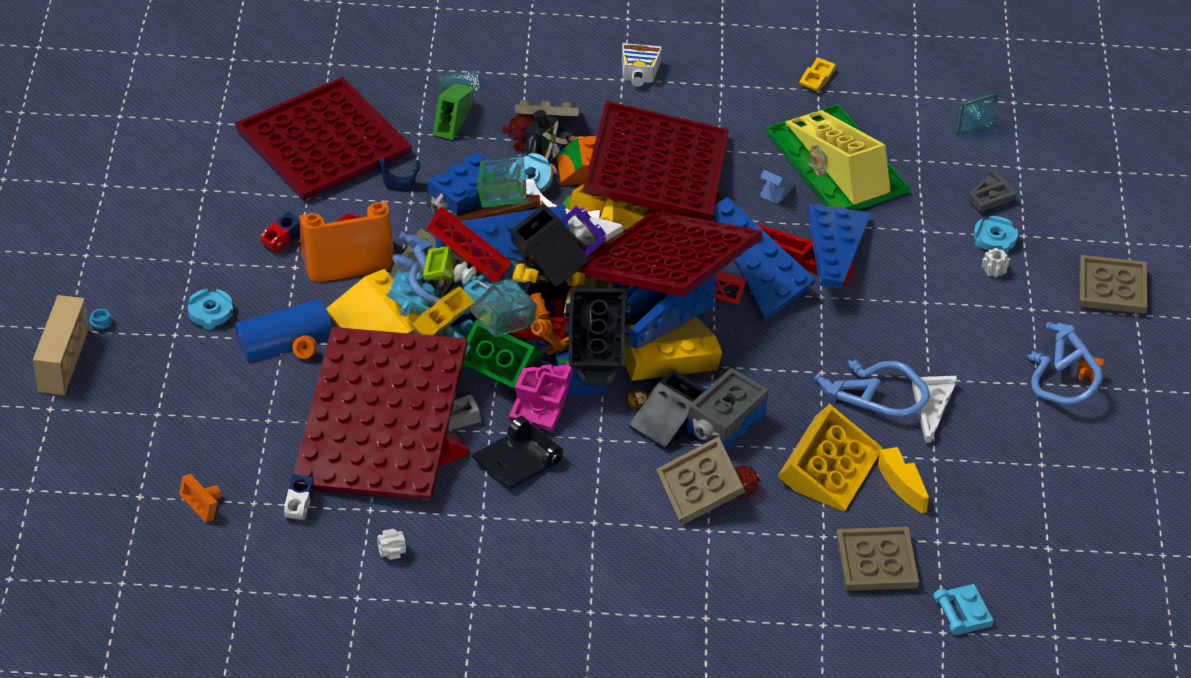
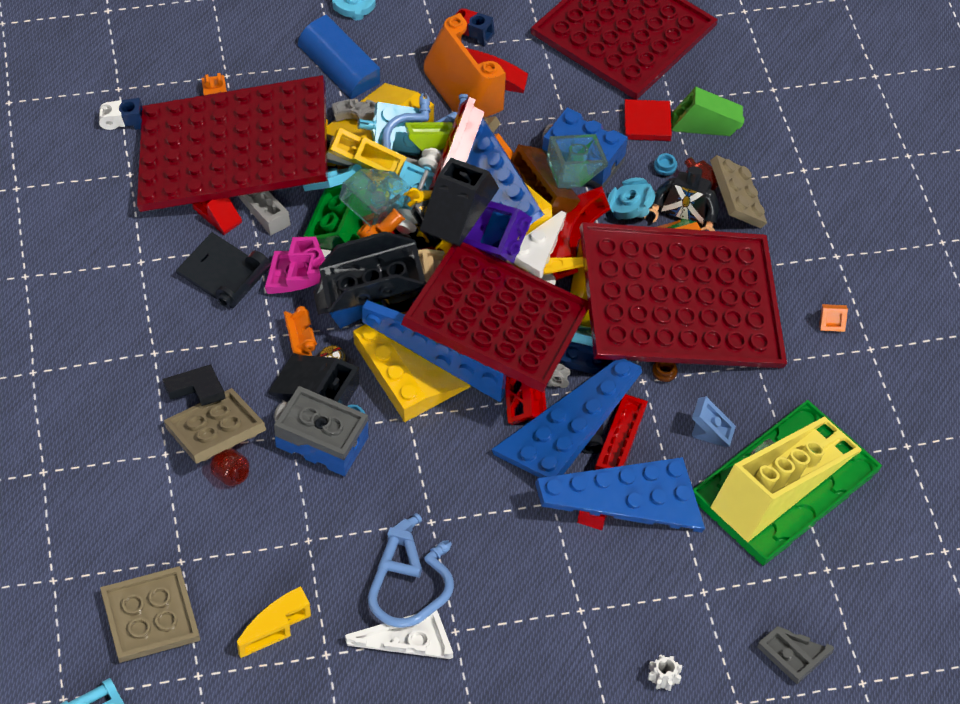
camera: 75 degrees right, 10 degrees up
(200, 499) = (106, 46): orange tile -> none
(284, 428) = (213, 84): none -> orange tile
(304, 347) = (324, 70): orange tile -> none
(370, 317) = (353, 109): none -> light grey tile
(391, 544) = (76, 193): white gear -> none
(399, 183) = (586, 92): dark blue helmet -> none
(438, 149) = (647, 120): none -> red tile
(446, 80) = (762, 114): clear light blue slope -> none
(494, 149) = (665, 164): none -> dark azure plate
(600, 411) = (300, 336): none -> orange hinge
(640, 63) = (860, 262): white torso -> none
(643, 487) = (198, 381): none -> black tile
(690, 92) = (833, 317): none -> tile
(818, 74) = (926, 439): yellow slope -> none
(830, 460) = (284, 547): yellow slope -> none
(976, 113) = (924, 610): clear light blue slope -> none
(985, 231) = (715, 682): medium azure plate -> none

